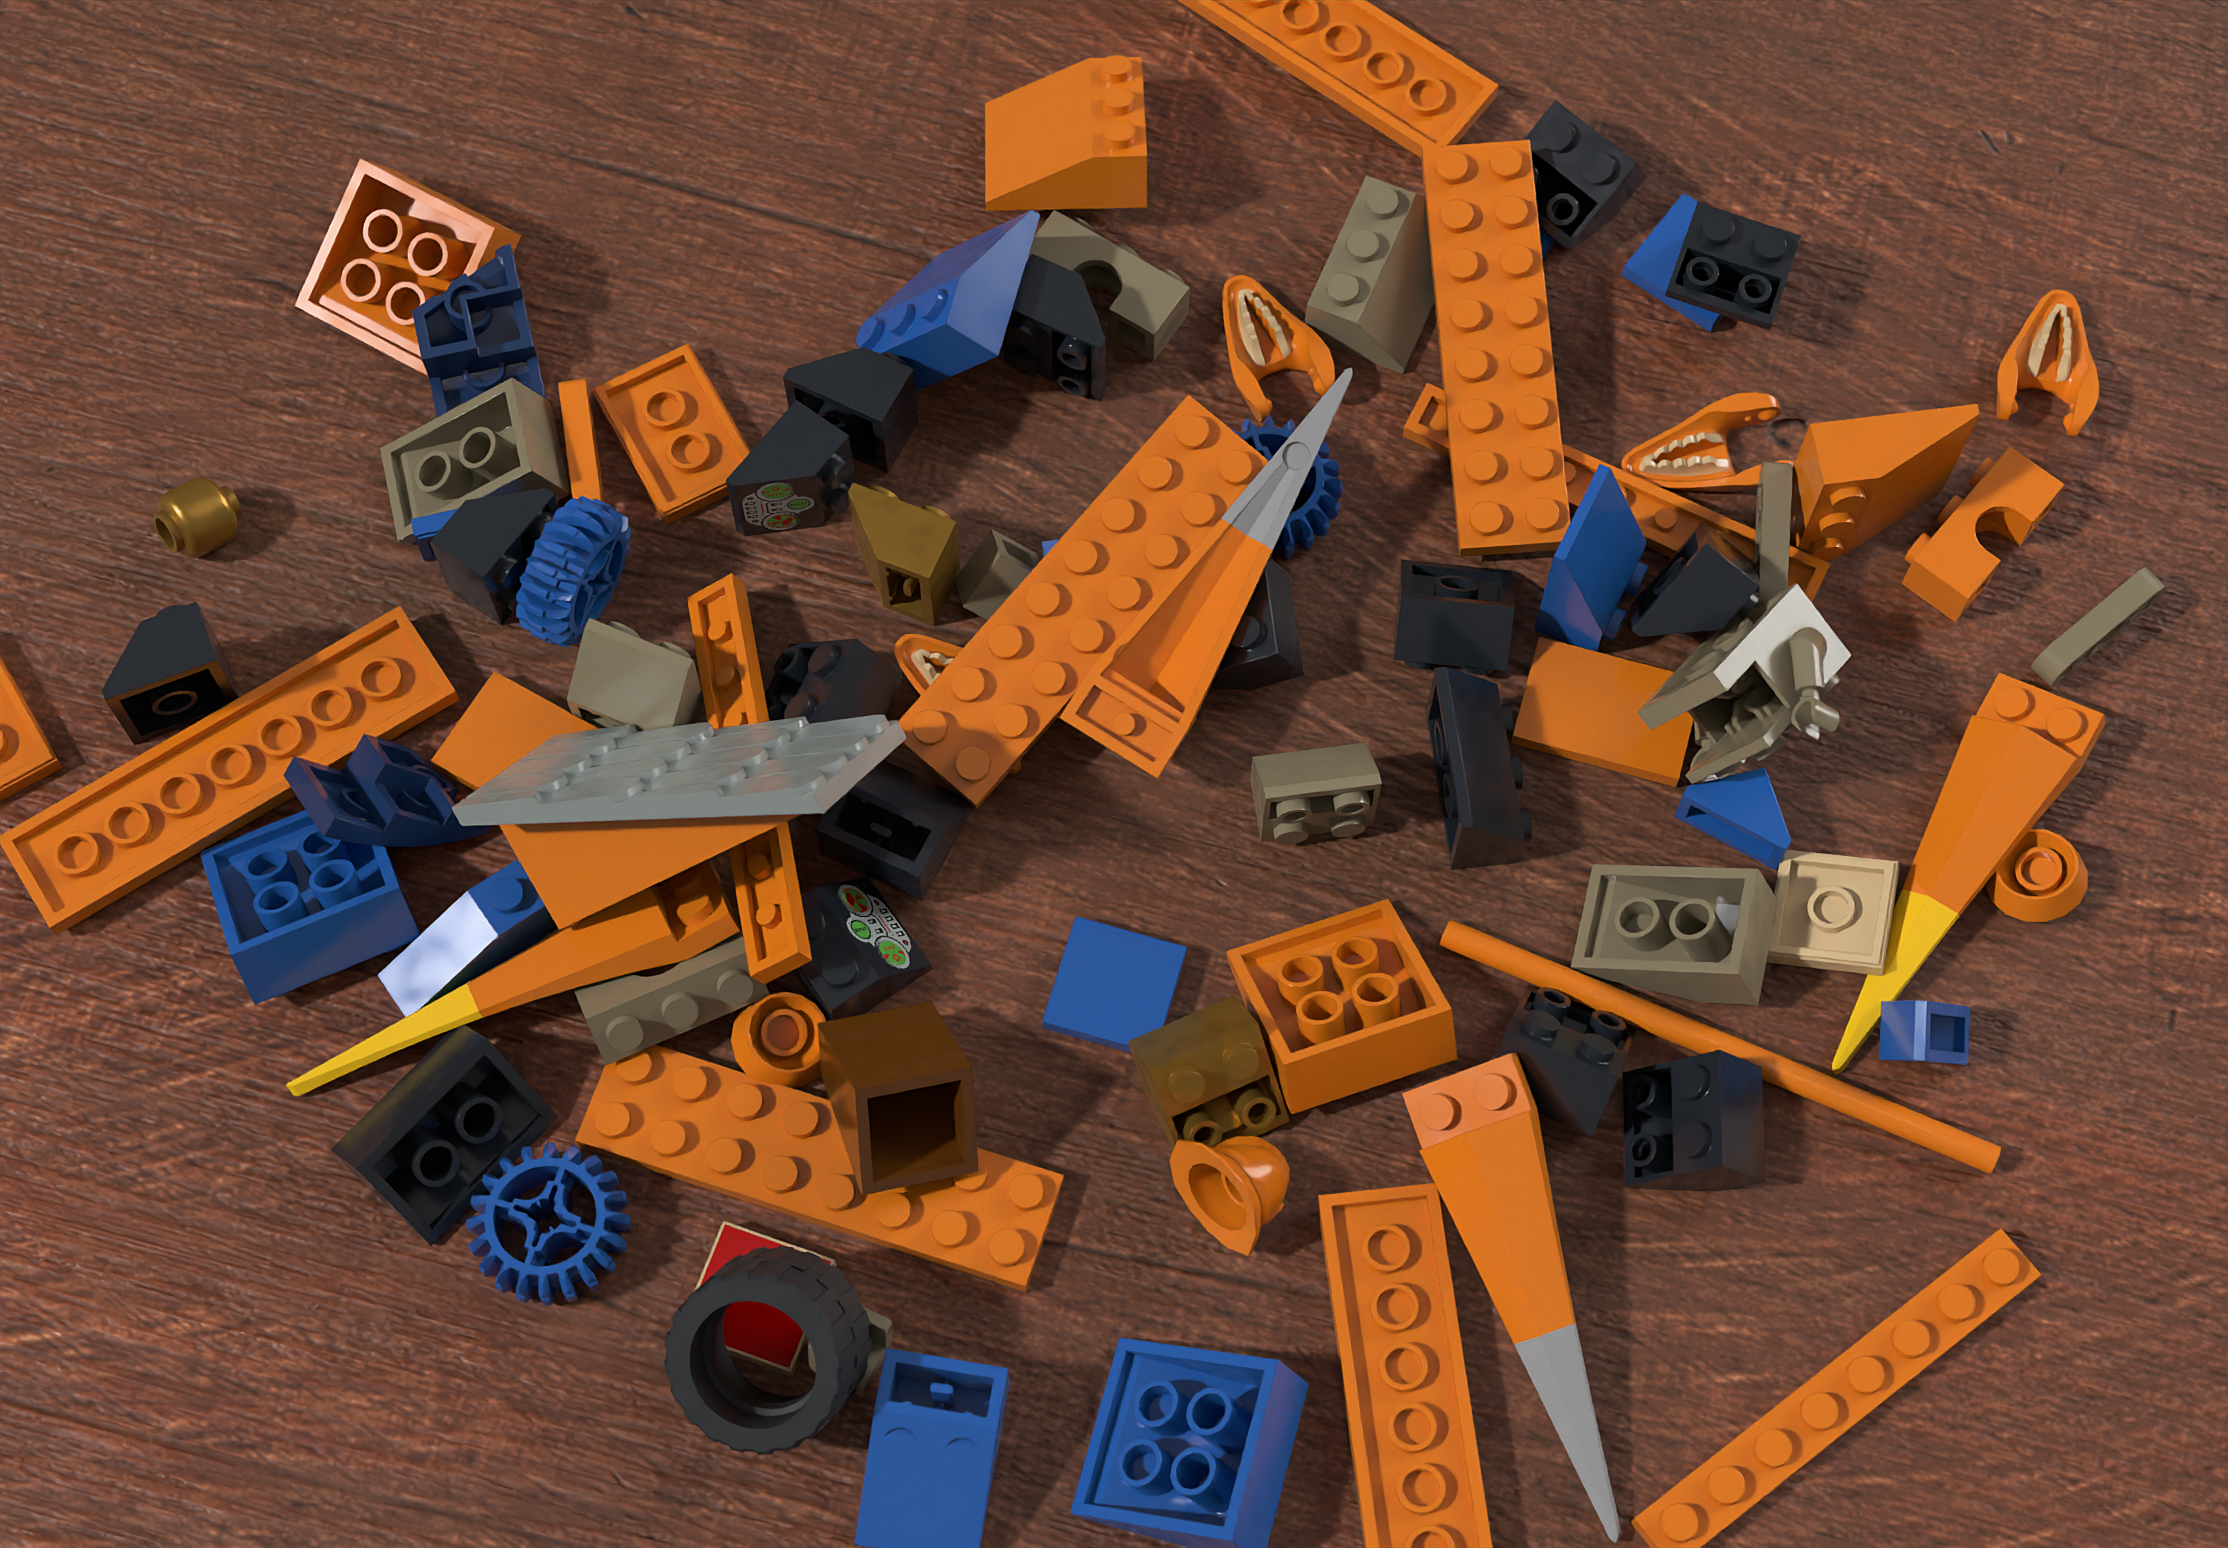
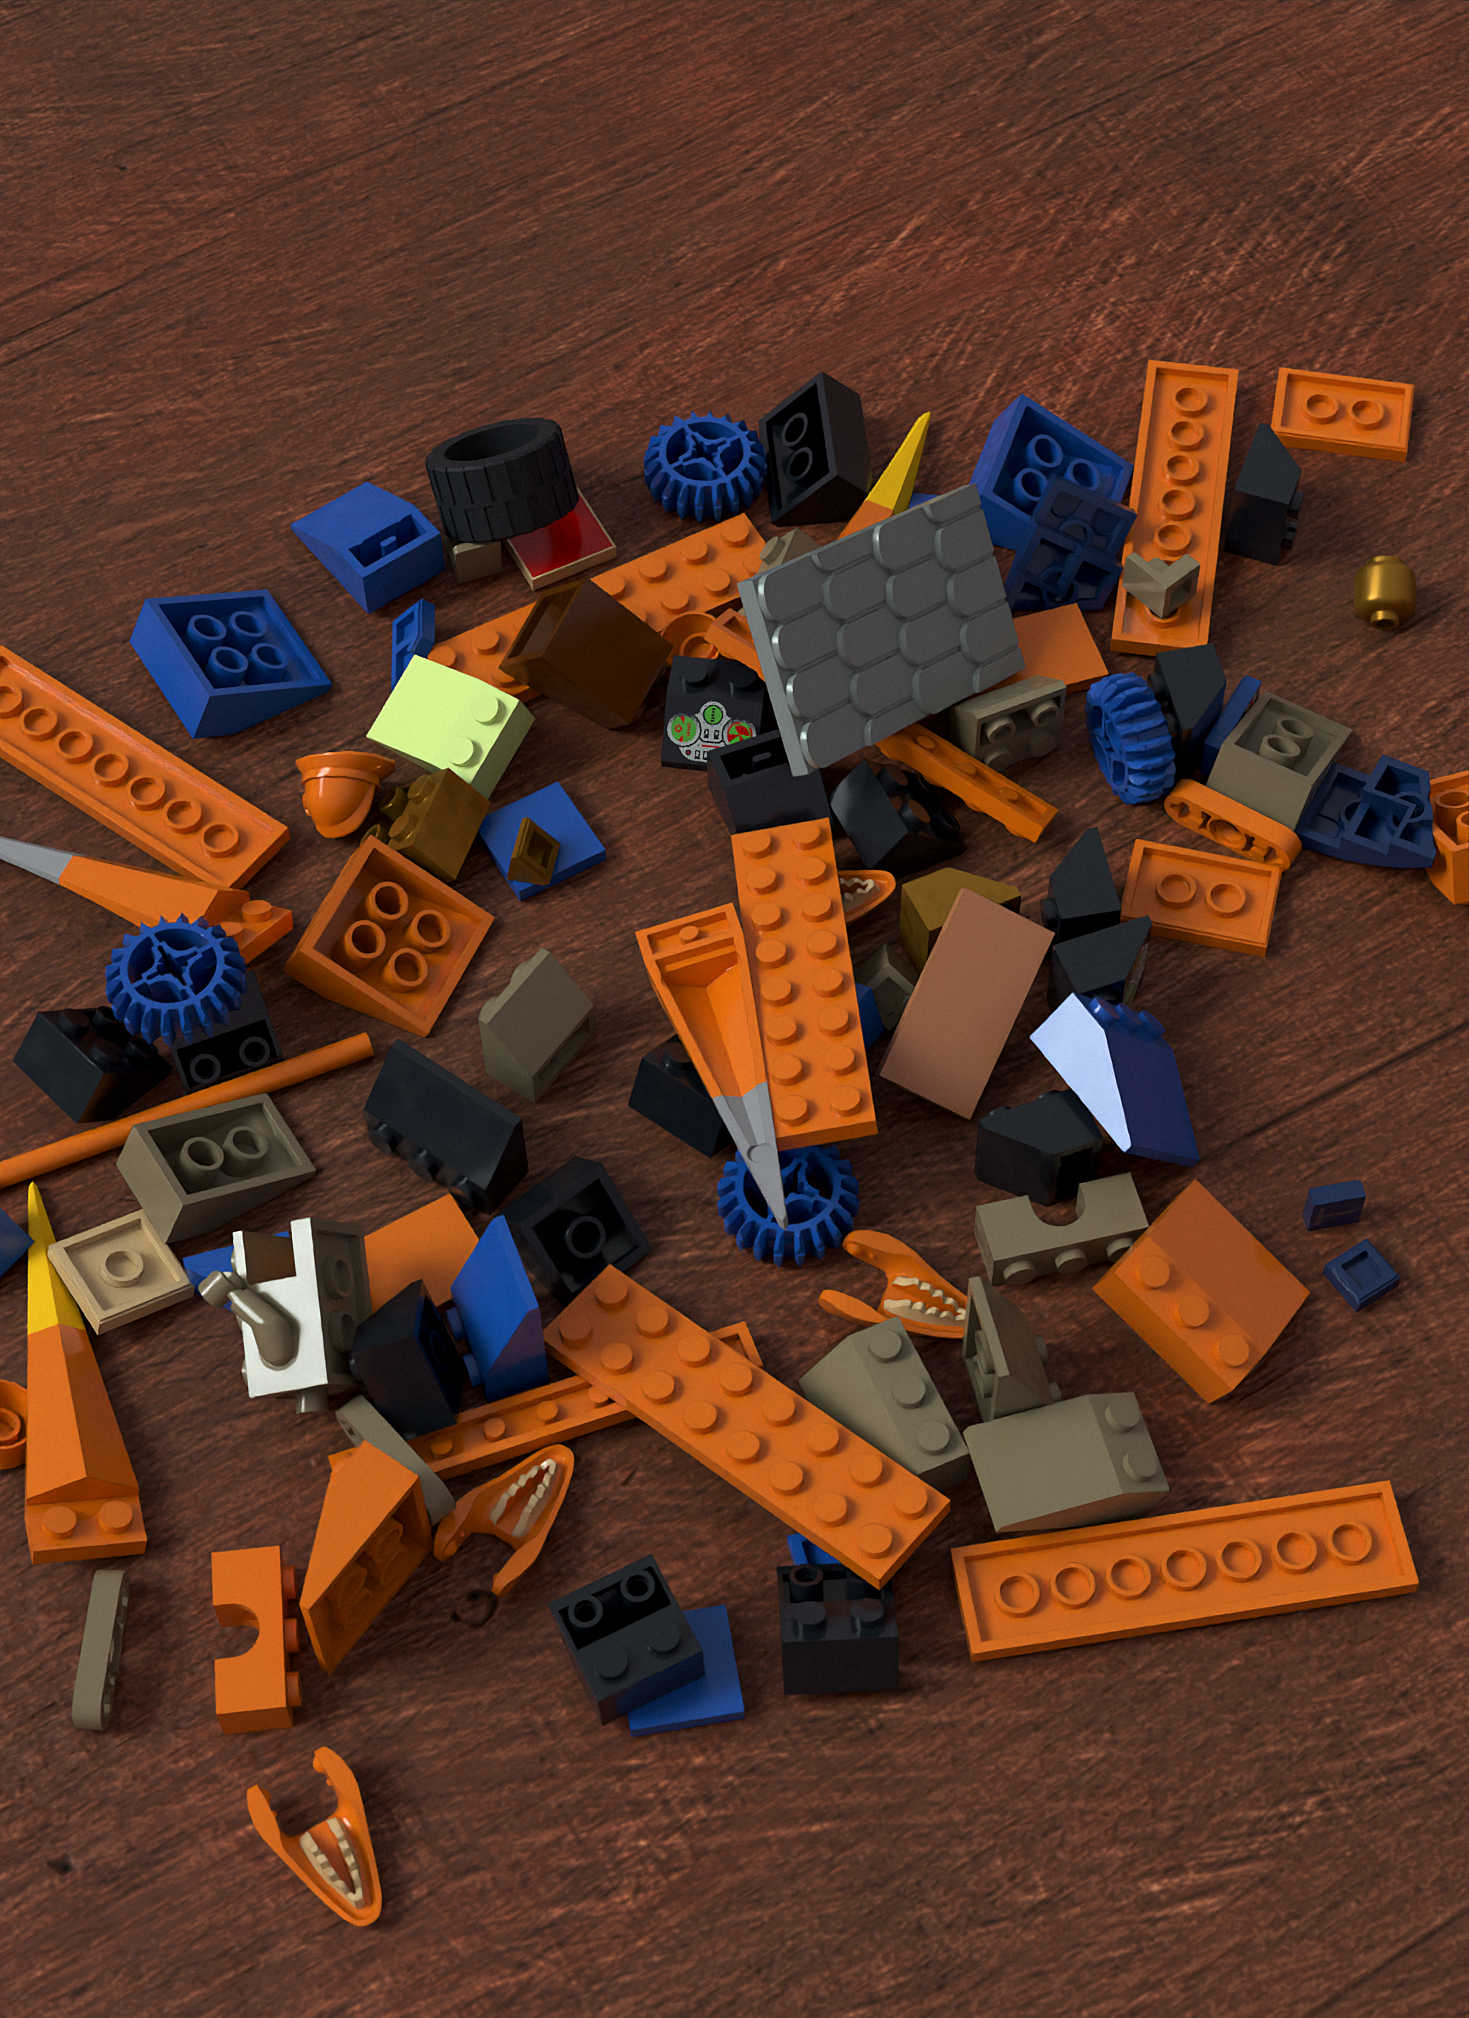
camera: 135 degrees right, 10 degrees down
(358, 683) = (1160, 585): none -> dark tan panel
(900, 126) = (1334, 1205): none -> dark blue tile
(936, 82) = (1361, 1275): none -> dark blue tile
(981, 471) = (965, 1004): none -> nougat tile
(1013, 1296) = (412, 634): none -> blue tile
(1081, 1155) = (452, 722): none -> yellowish green slope
(1148, 958) = (533, 855): none -> pearl gold slope
(1274, 208) = (1003, 1355): none -> dark tan slope
(1304, 117) = (1068, 1464): none -> dark tan slope
(1615, 1058) = (175, 985): none -> blue gear

